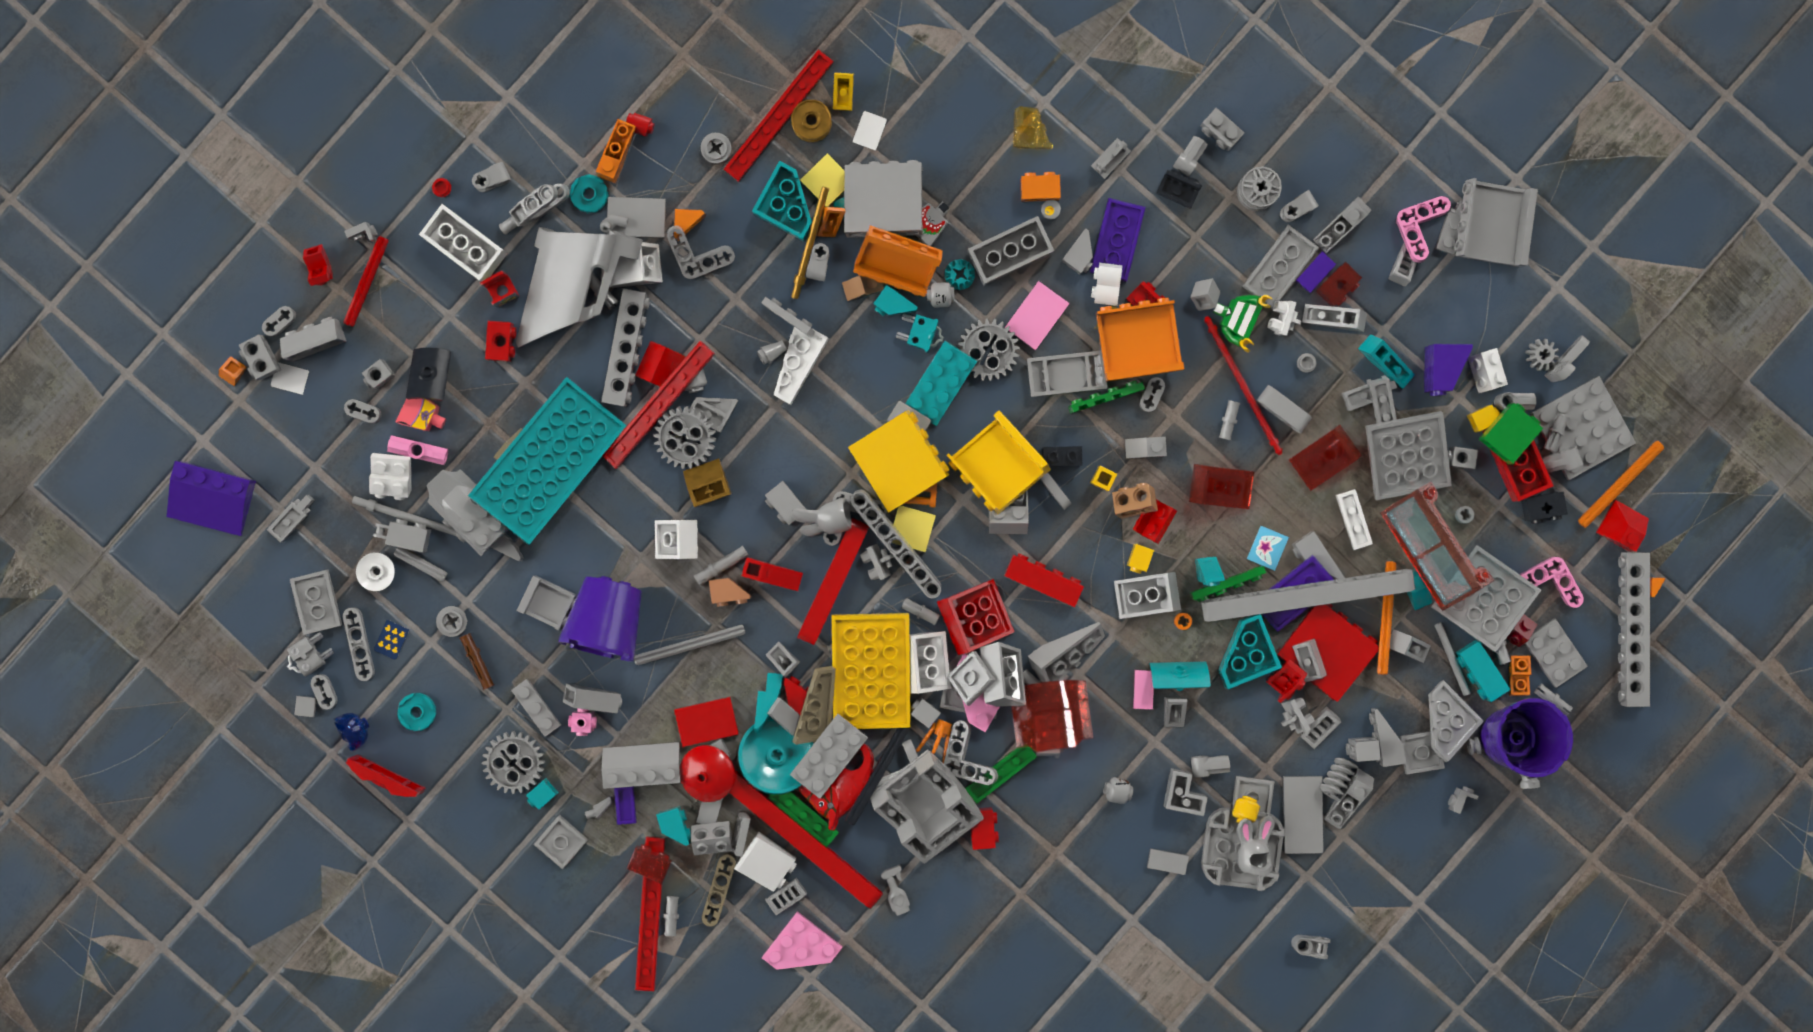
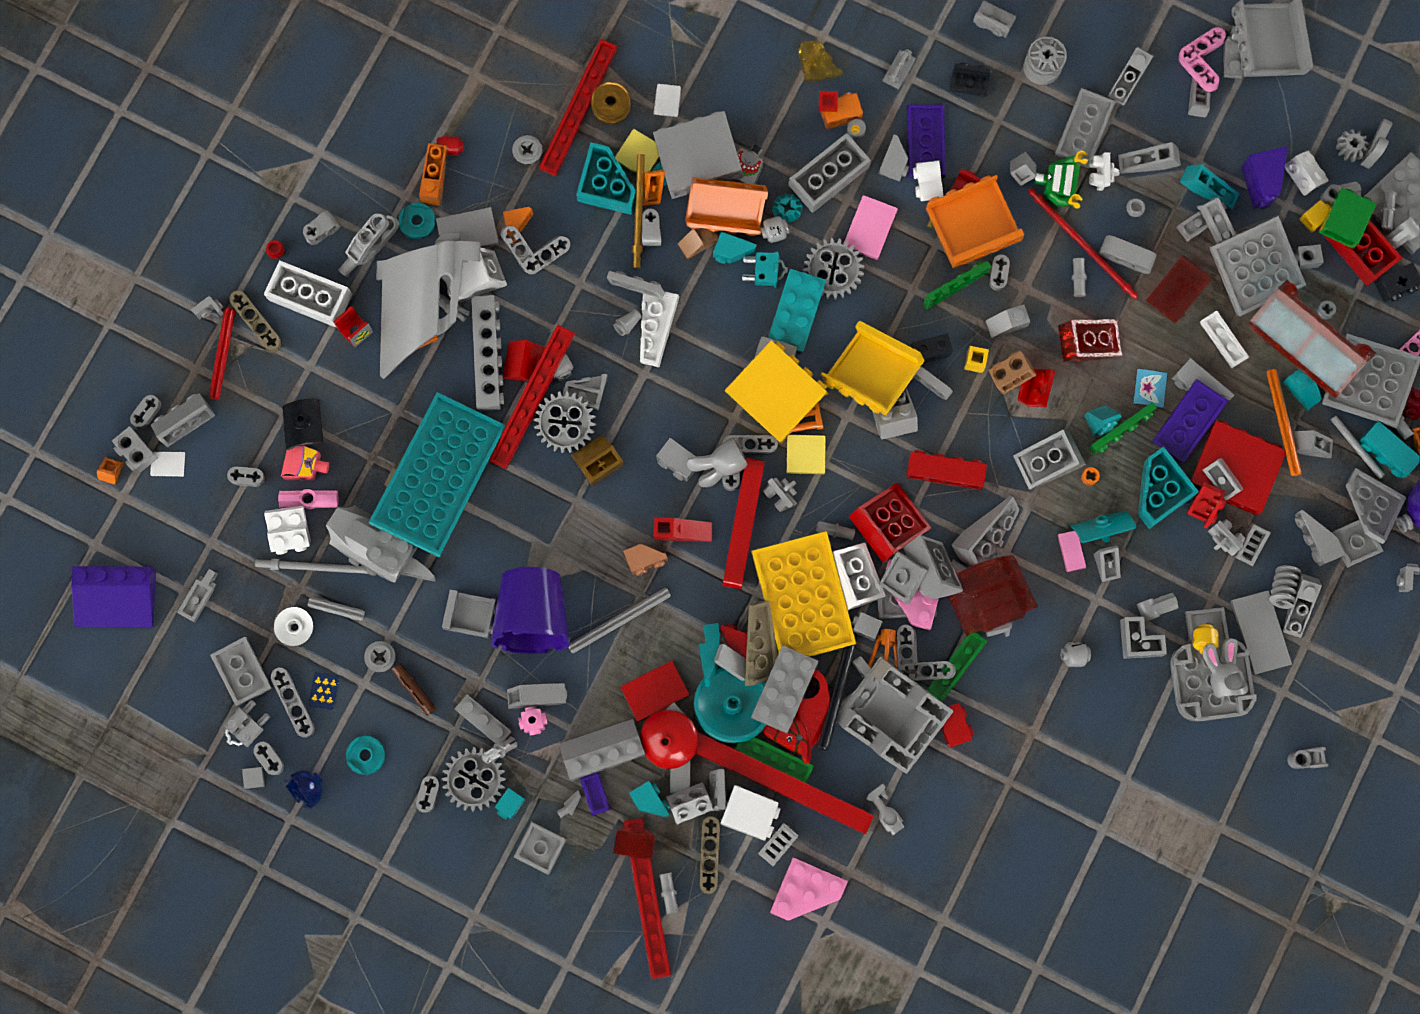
camera: 15 degrees left, 10 degrees down
(317, 265) = (172, 348): red brick -> none
(383, 777) = (337, 824): red slope -> none
(386, 374) = (253, 428): light grey brick -> none
(404, 257) = (255, 321): none -> dark tan beam
(405, 535) = (314, 583): light grey brick -> none
(470, 766) = (423, 792): none -> light grey beam
(494, 331) = (360, 366): red brick -> none
(543, 742) = (499, 750): none -> light grey axle
(676, 539) = (580, 521): white slope -> none
(721, 565) = (624, 542): light grey pin -> none
(782, 659) = (714, 610): light grey slope -> none
(843, 91) = (633, 68): yellow slope -> none
(898, 553) = (801, 478): light grey beam -> none
(1028, 178) = (828, 101): none -> red plate
(1066, 373) = (913, 272): light grey slope -> none
(1140, 558) = (1032, 426): yellow brick -> none
(1167, 861) = (1143, 712): light grey tile -> none
(1188, 159) = (971, 52): light grey piece -> none
(1300, 205) = (1086, 68): light grey piece -> none
(1308, 595) = (1203, 417): light grey beam -> none
(1315, 272) = (1119, 124): dark purple tile -> none
(1343, 274) = (1147, 119): clear red brick -> none
(1363, 749) = (1300, 551): light grey brick -> none

